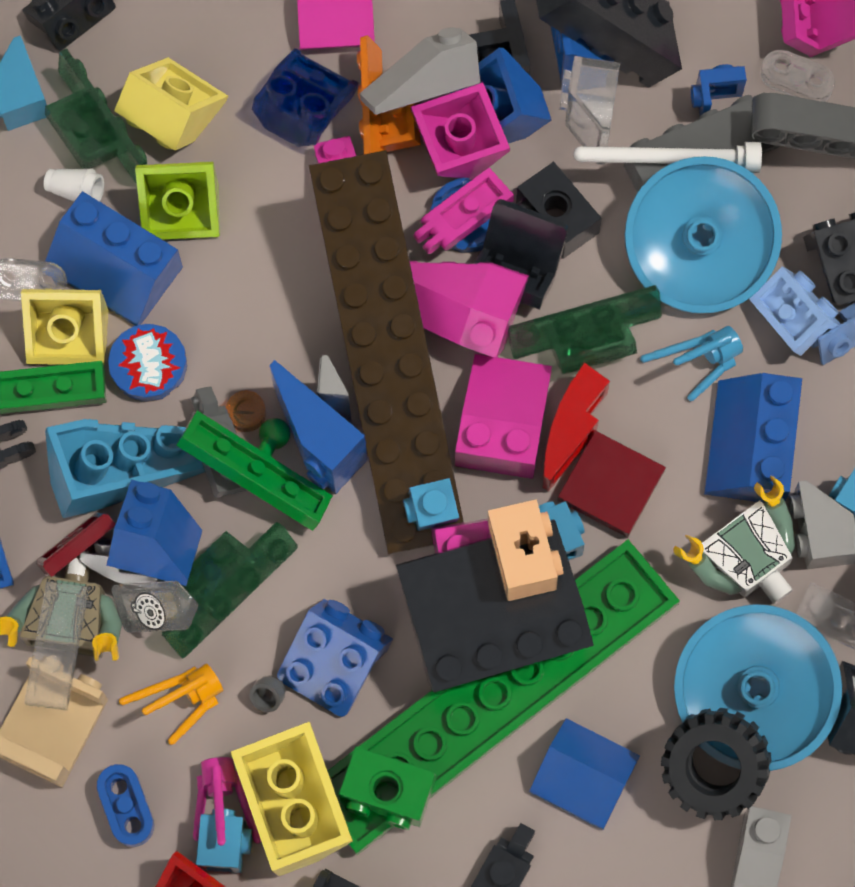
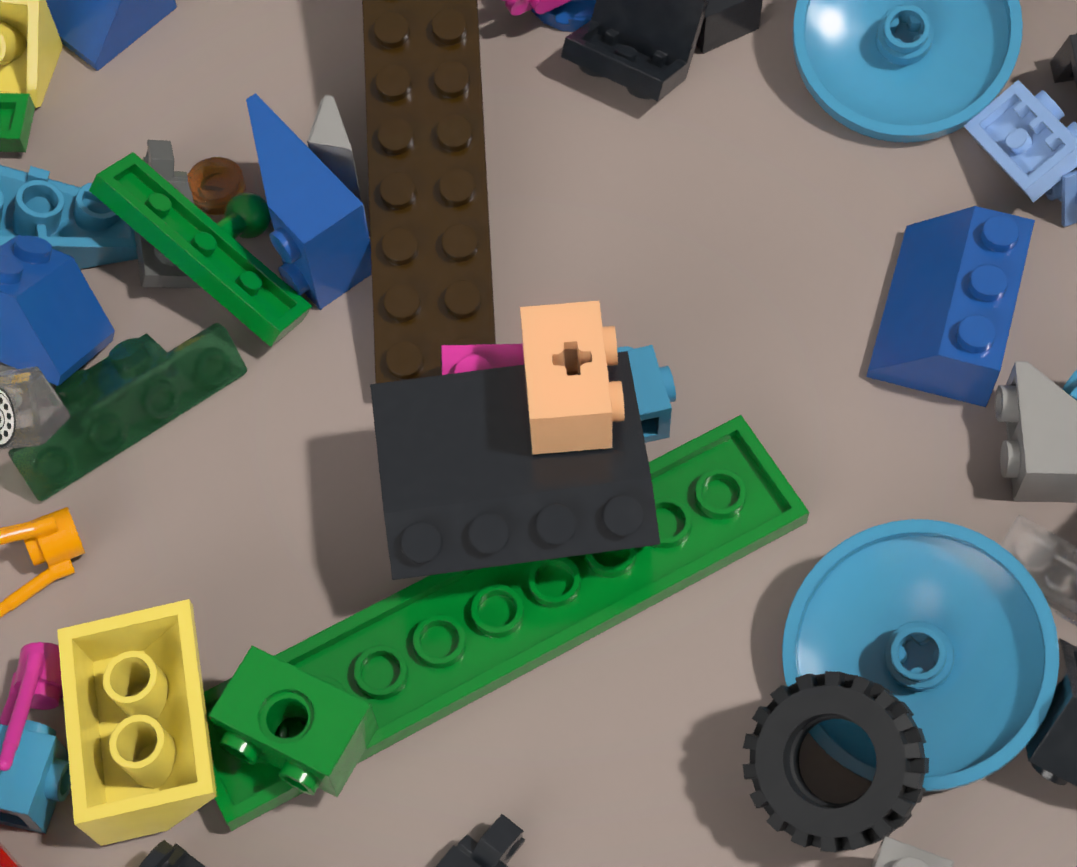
camera: 10 degrees right, 10 degrees down
(147, 362) = (95, 109): tile -> none
(260, 688) = (142, 557): dark grey hinge -> none
(333, 656) = (259, 523): bracket -> none
(431, 505) = (444, 314): dark azure brick -> none
(469, 302) = (558, 75): dark pink wedge -> none
(503, 416) = (578, 234): dark pink slope -> none
(573, 423) = (682, 252): red slope -> none
(584, 773) = (618, 755): blue slope -> none
(588, 332) = (722, 134): clear green bracket -> none
(611, 484) = (729, 342): dark red tile -> none
(717, 346) = (908, 180): dark azure plant -> none
(748, 549) = (925, 452): torso -> none

